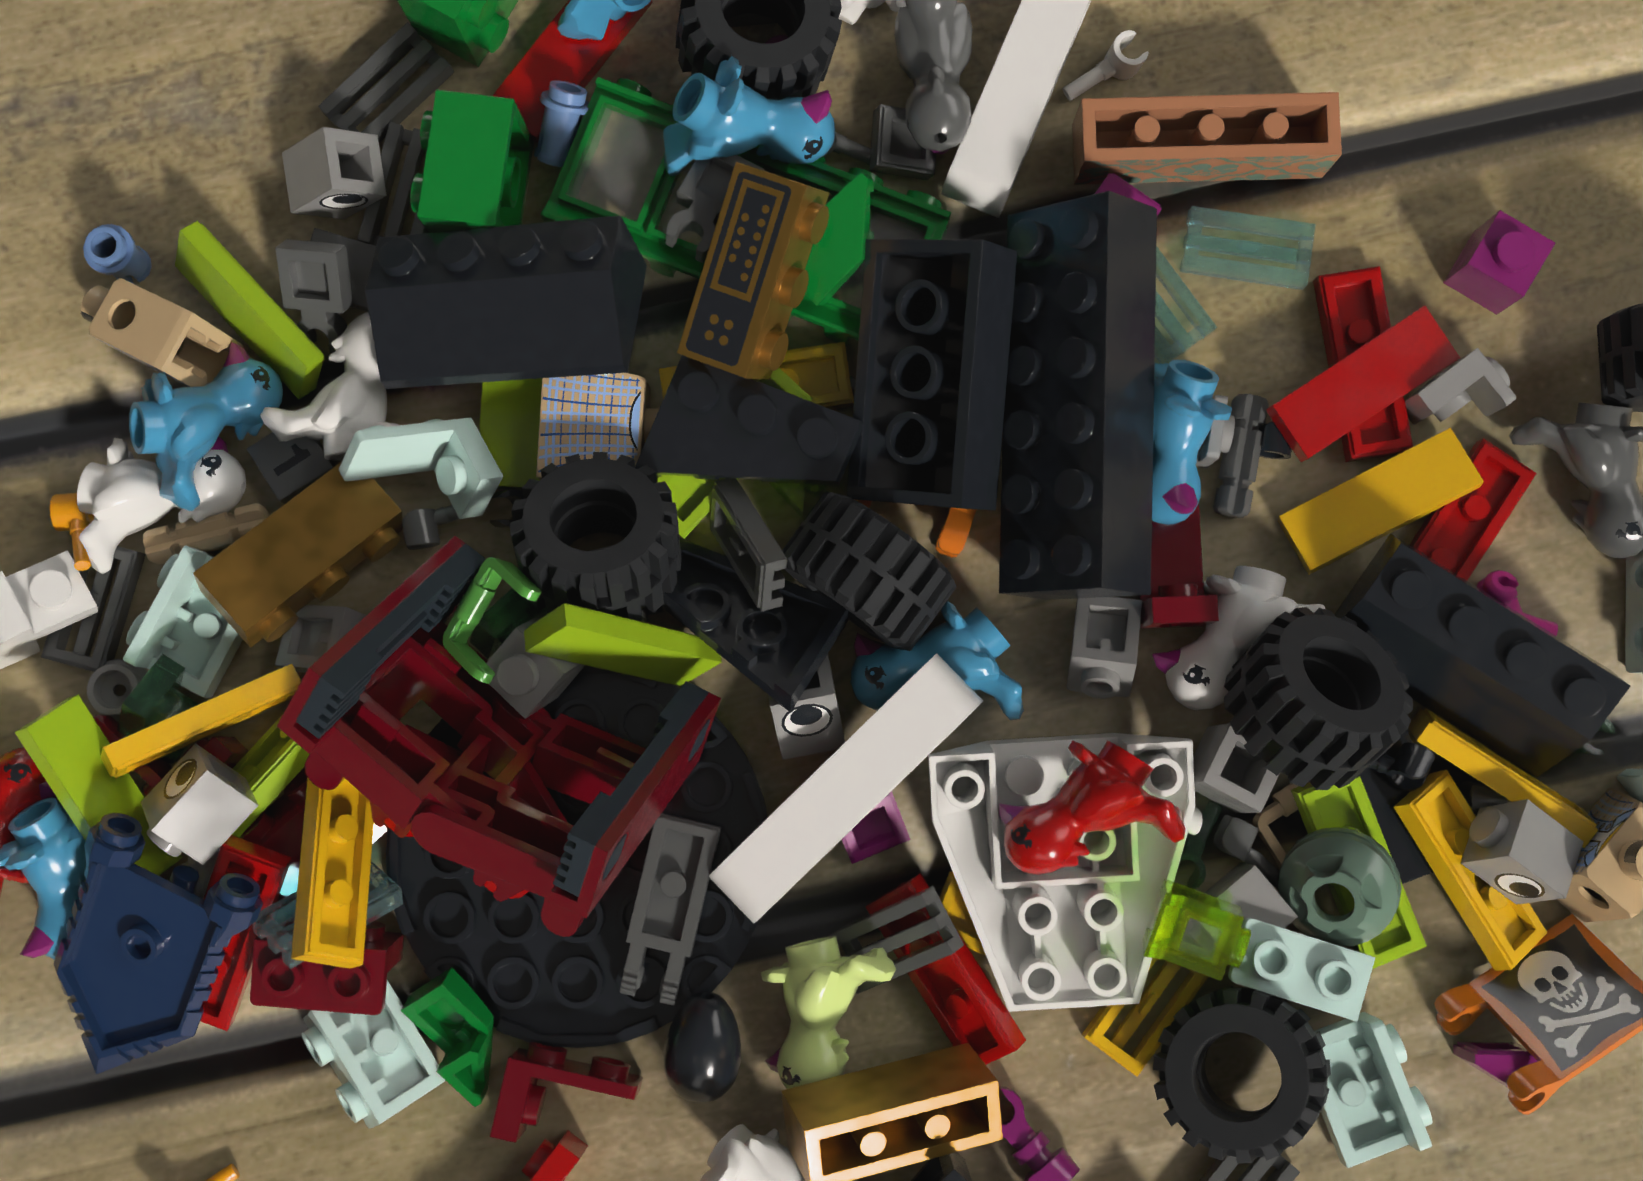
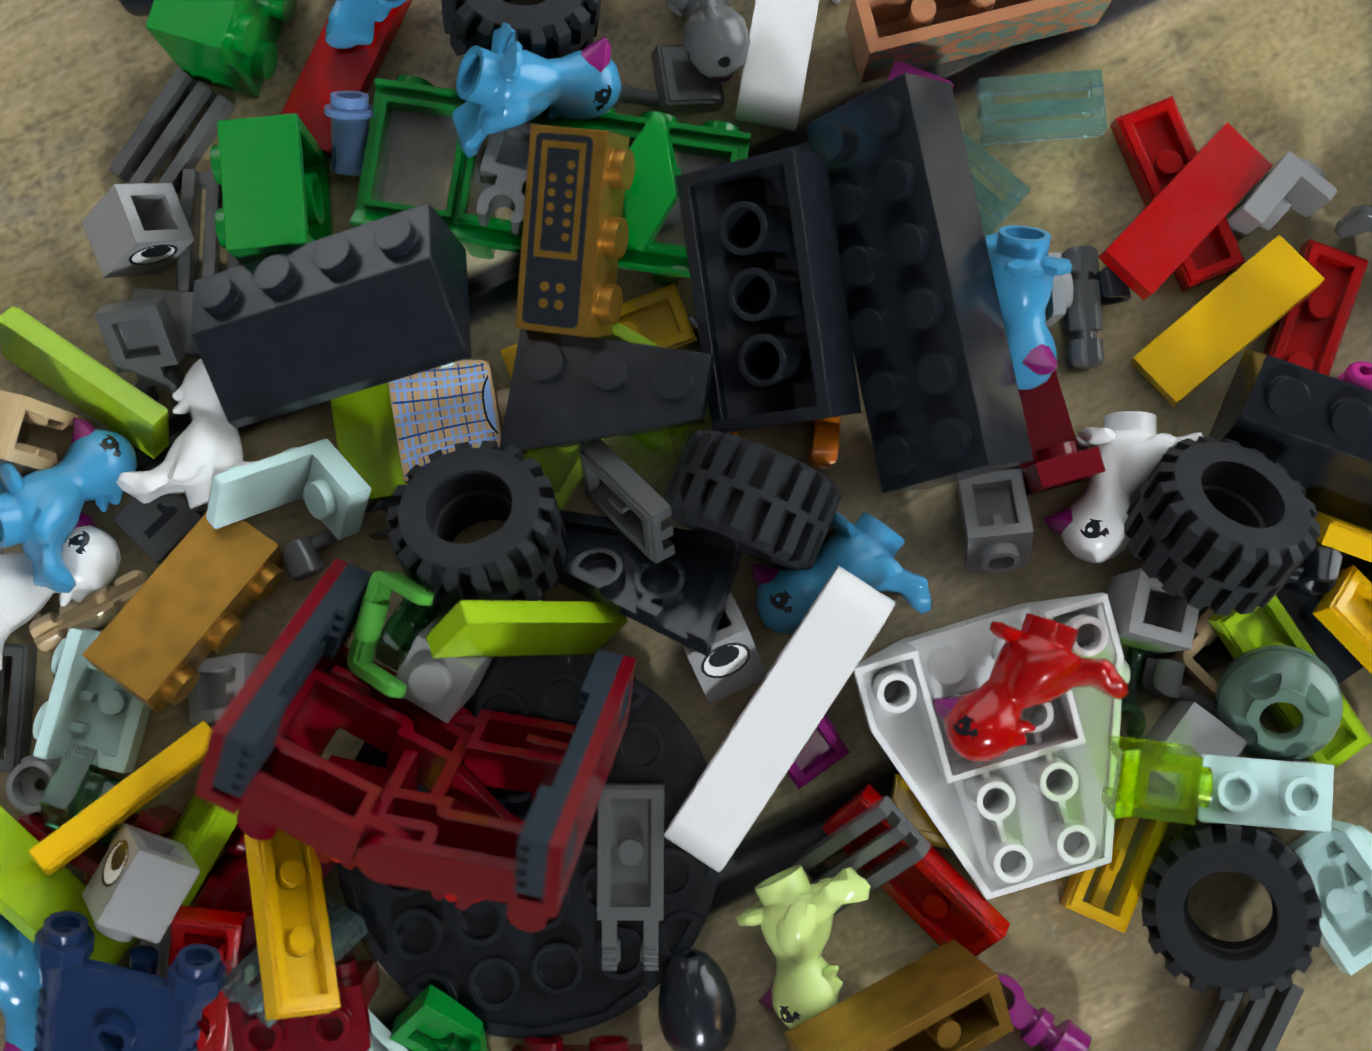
camera: 15 degrees left, 0 degrees up
(1499, 262) = (1287, 66): magenta brick -> none

